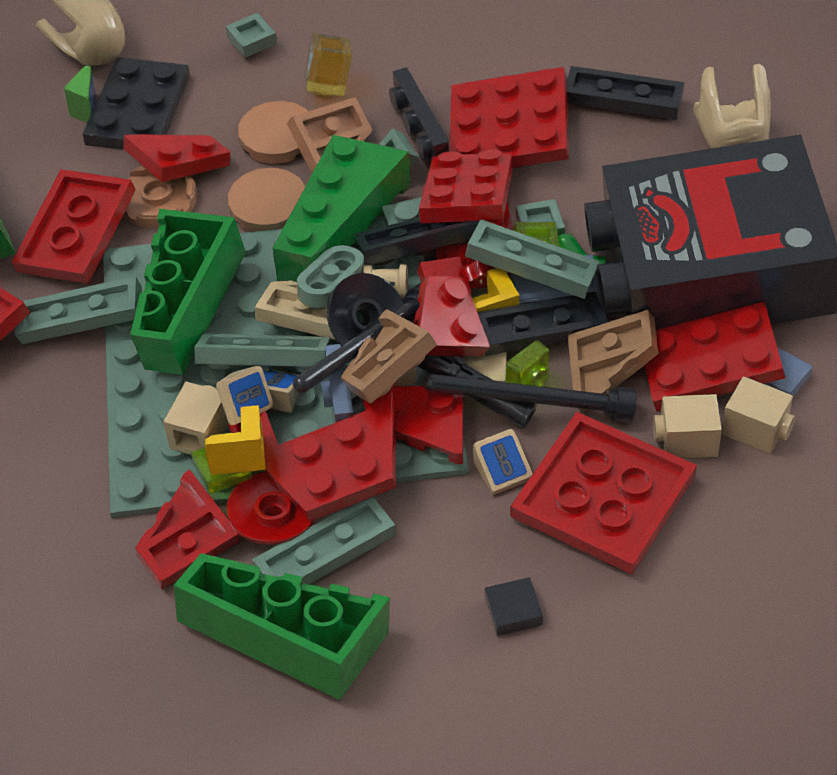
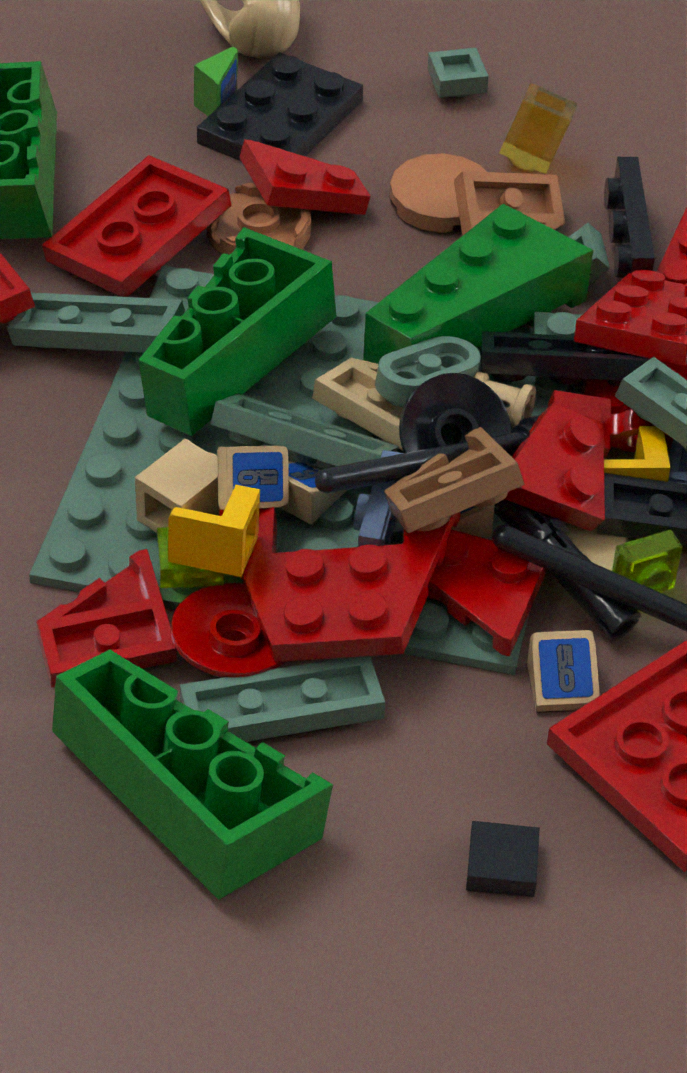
camera: 15 degrees right, 5 degrees down
(264, 198) = (384, 260): nougat tile -> none

